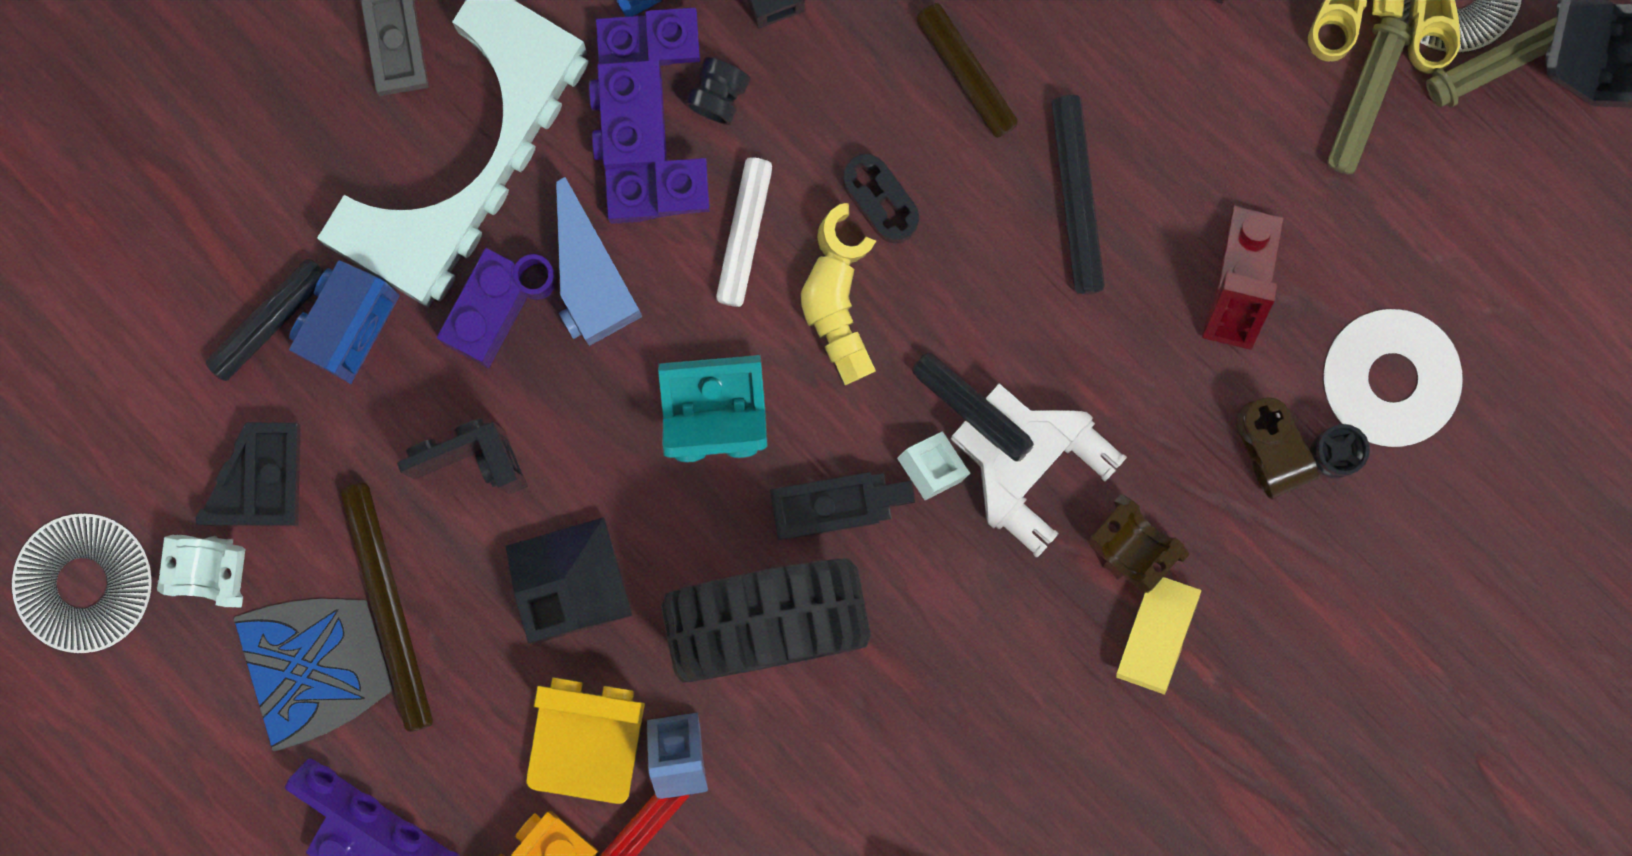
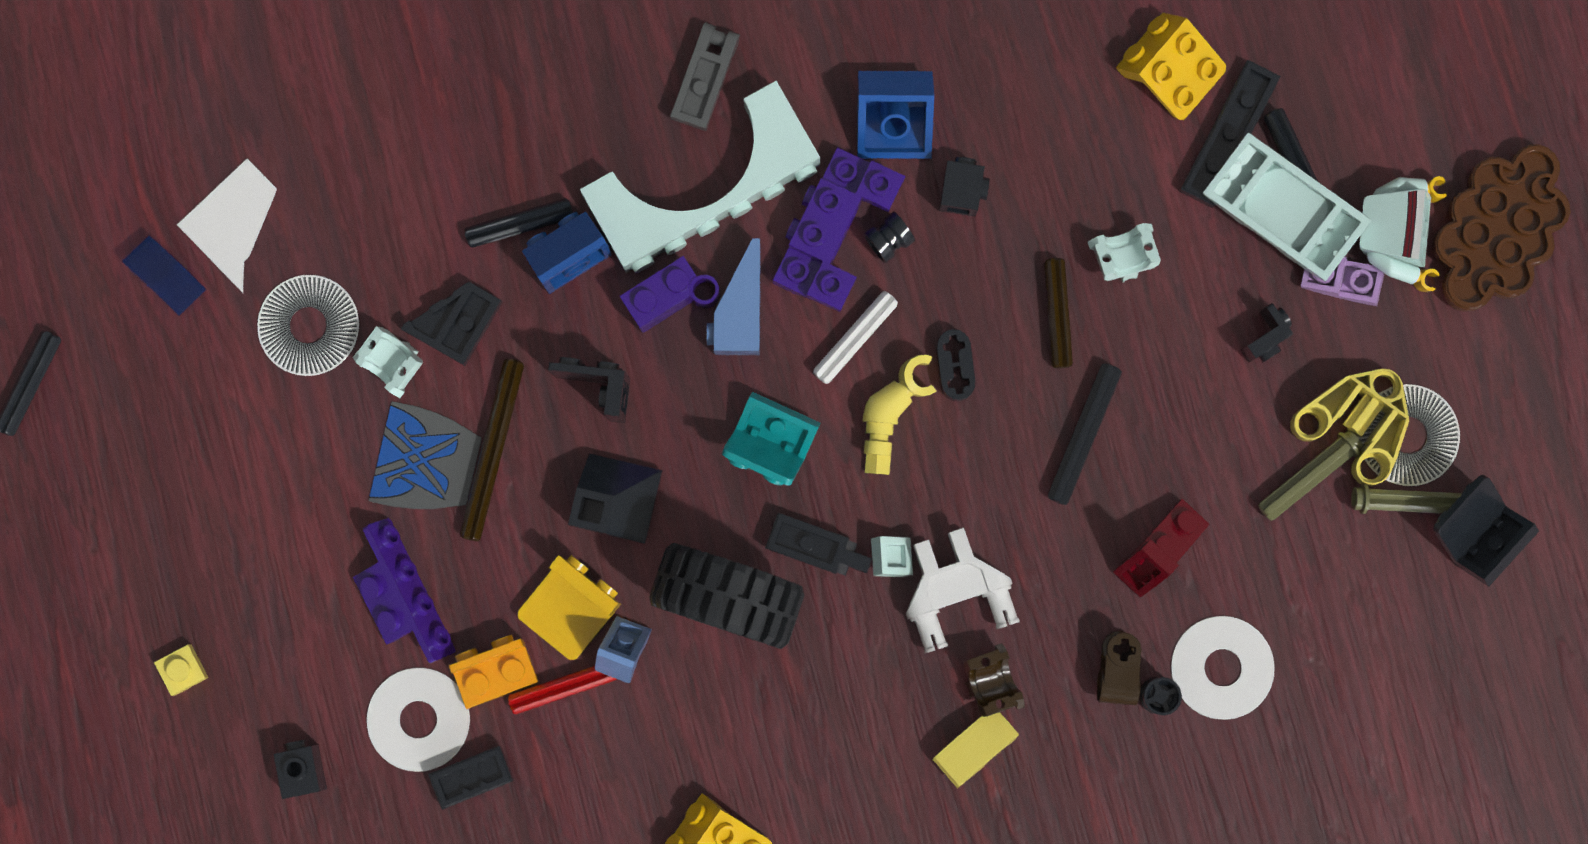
camera: 30 degrees right, 0 degrees up
(973, 407) = (938, 533): black axle -> none

